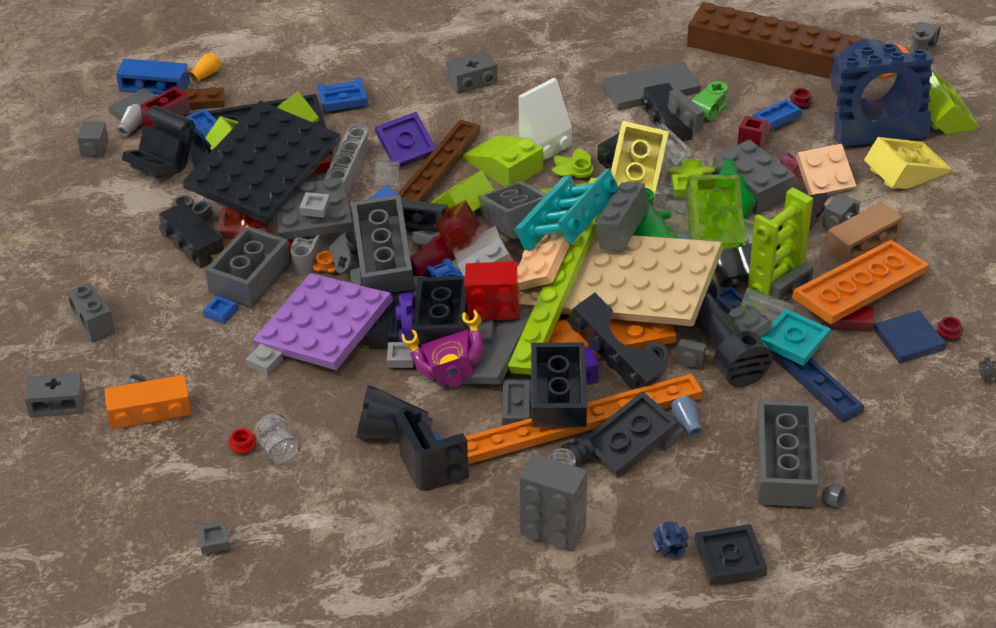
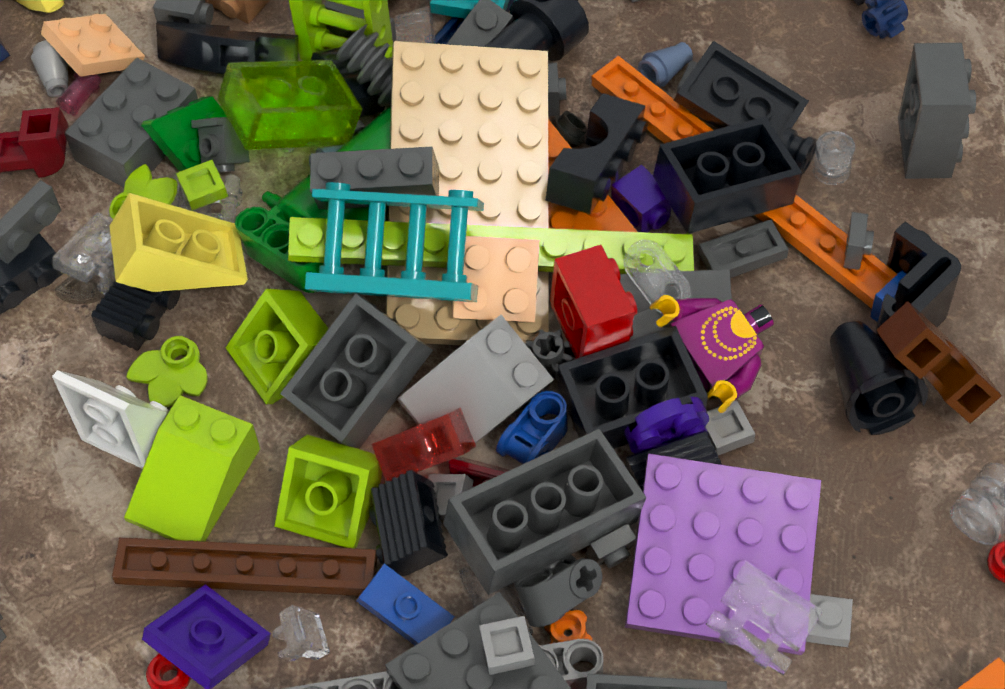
camera: 110 degrees left, 15 degrees up
(276, 322) = (771, 608): none -> clear plate
(358, 450) = (934, 356): none -> reddish brown arch
(481, 437) = (858, 241): none -> dark grey plate
(507, 338) = (654, 278): none -> clear plate
(732, 253) = (370, 61): none -> dark grey piece

